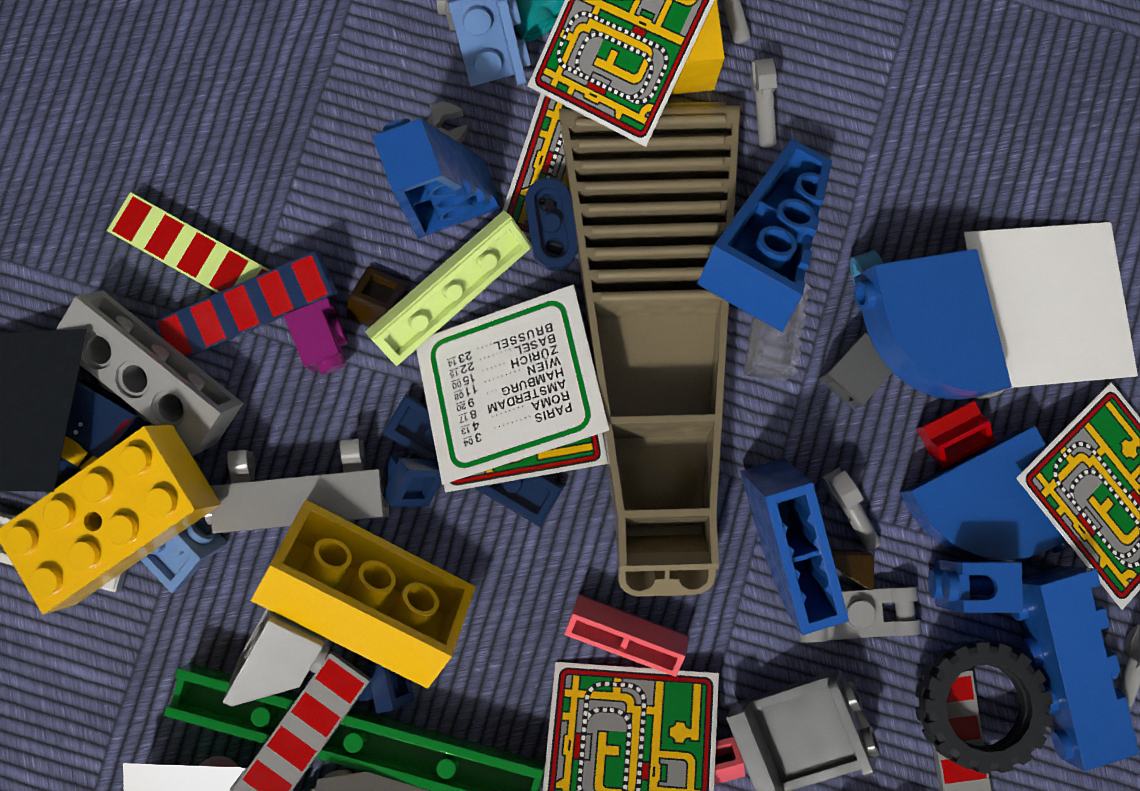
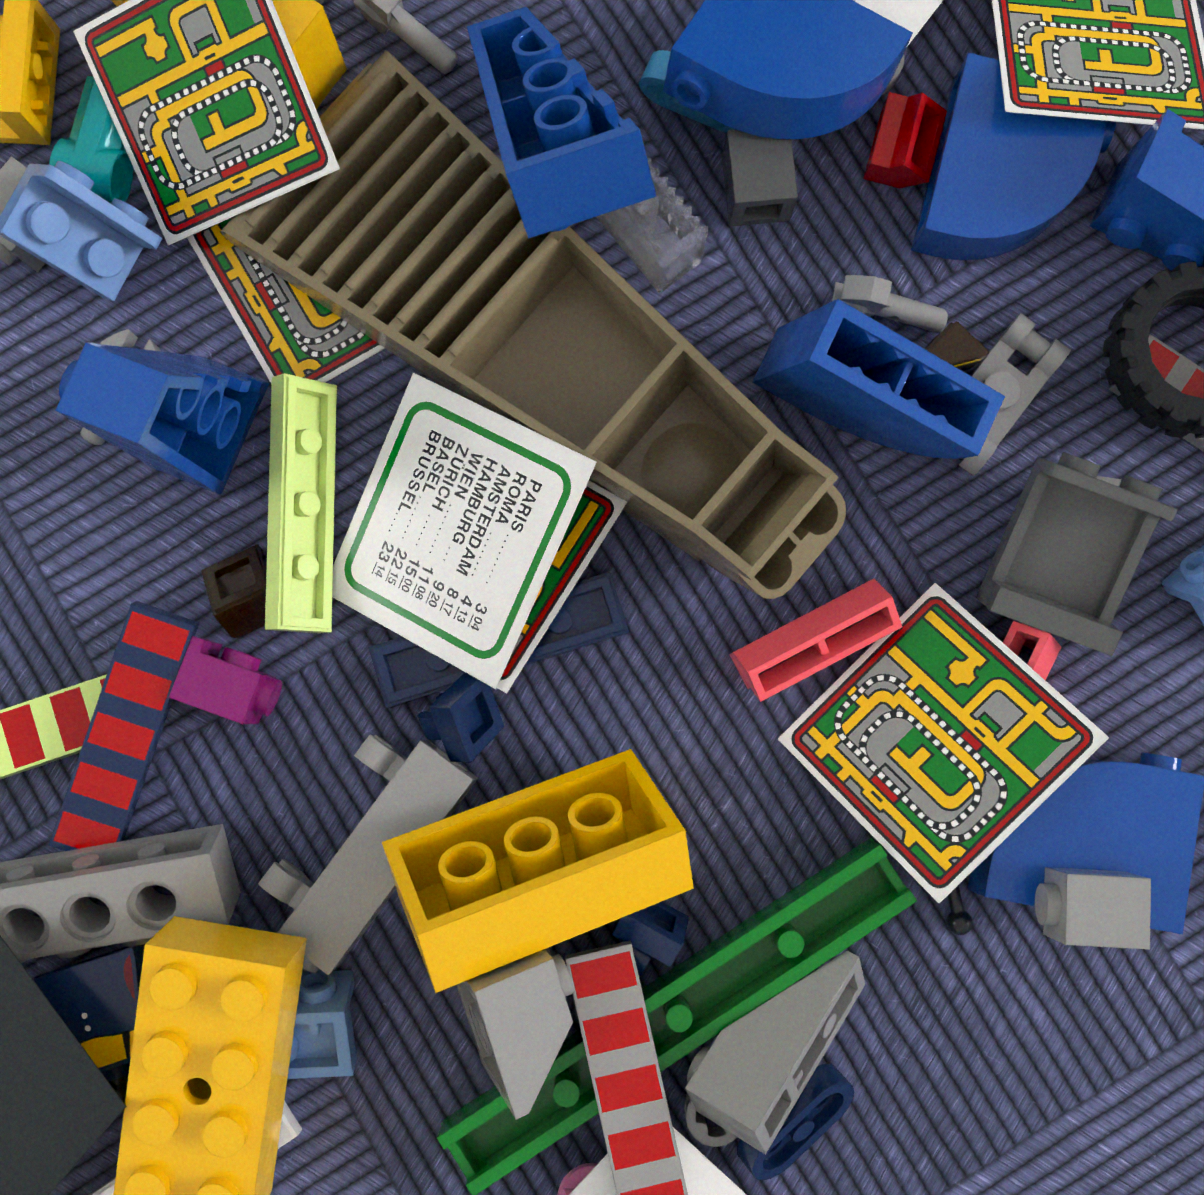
camera: 50 degrees left, 0 degrees up
(551, 225) = (333, 347): dark blue plate -> none
(977, 586) = (1064, 258): blue brick -> none

